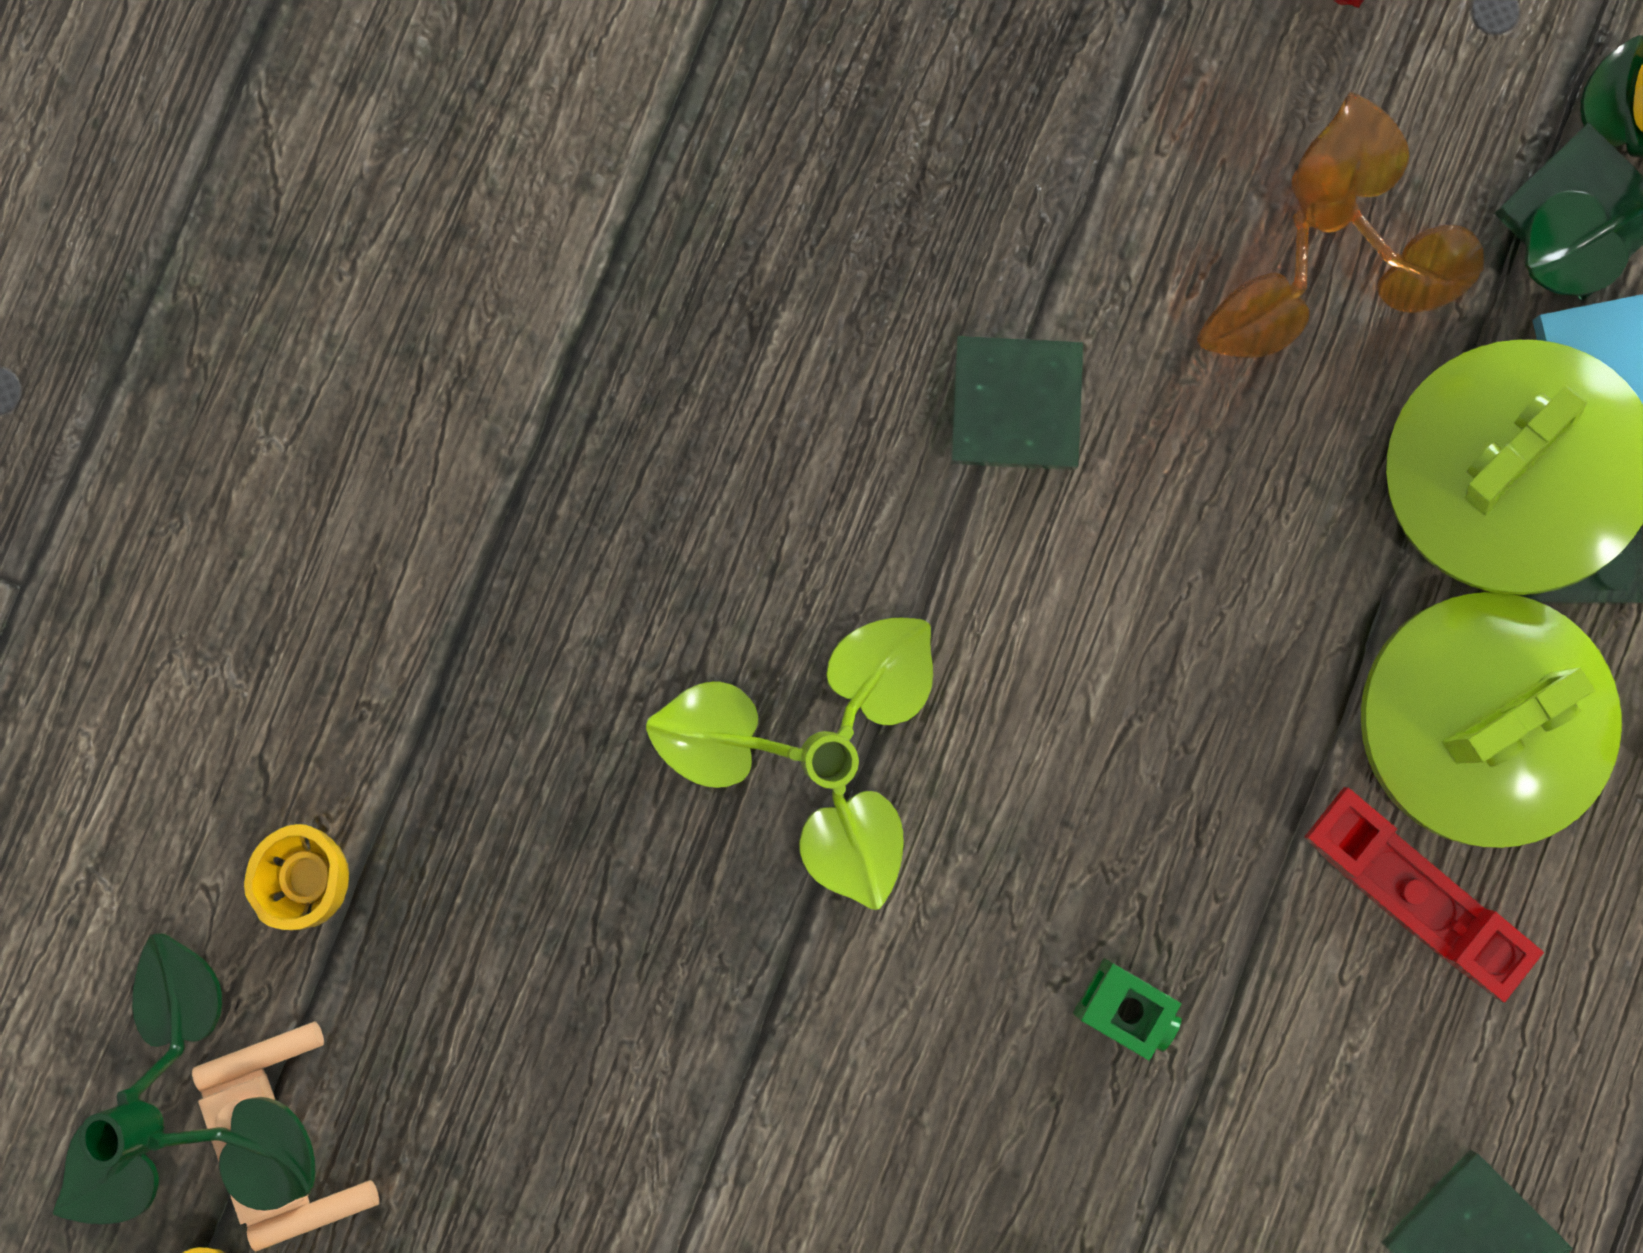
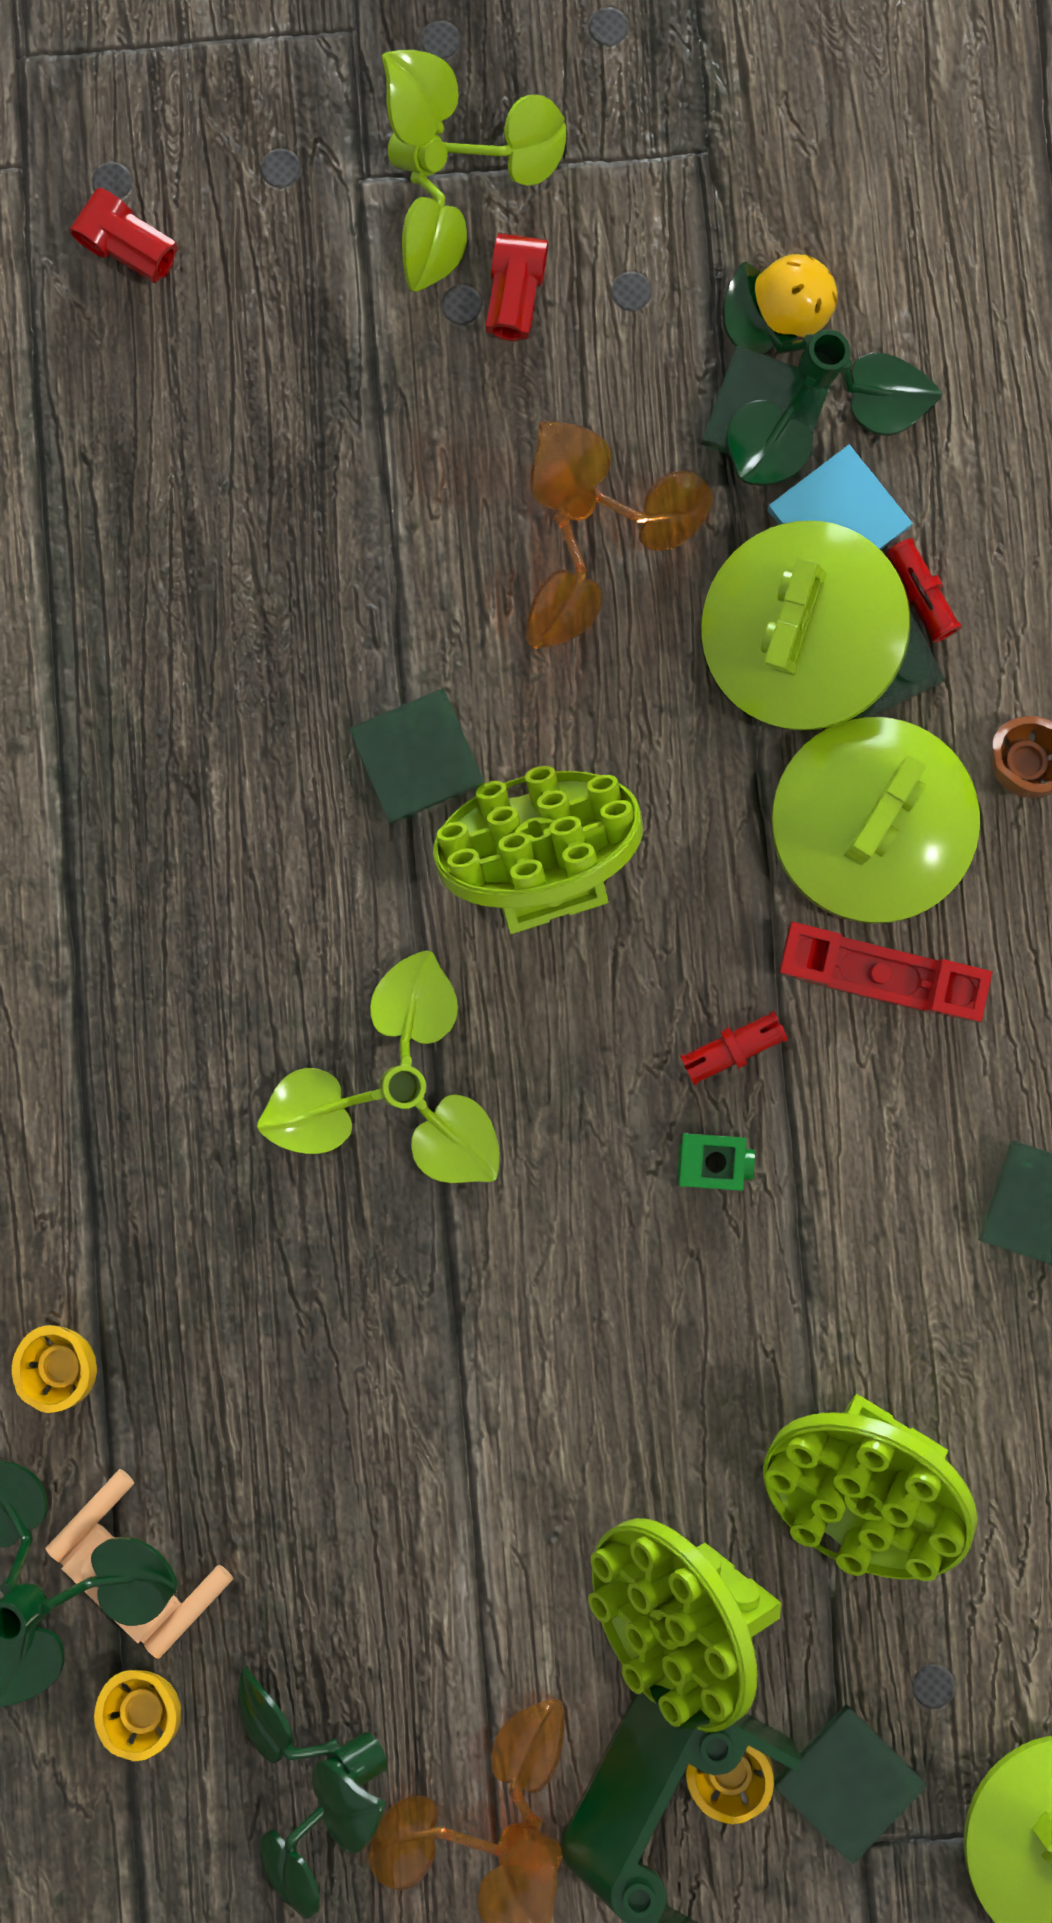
camera: 25 degrees left, 0 degrees up
(1110, 572) = (541, 849): none -> lime bracket
(1212, 894) = (734, 1048): none -> red pin

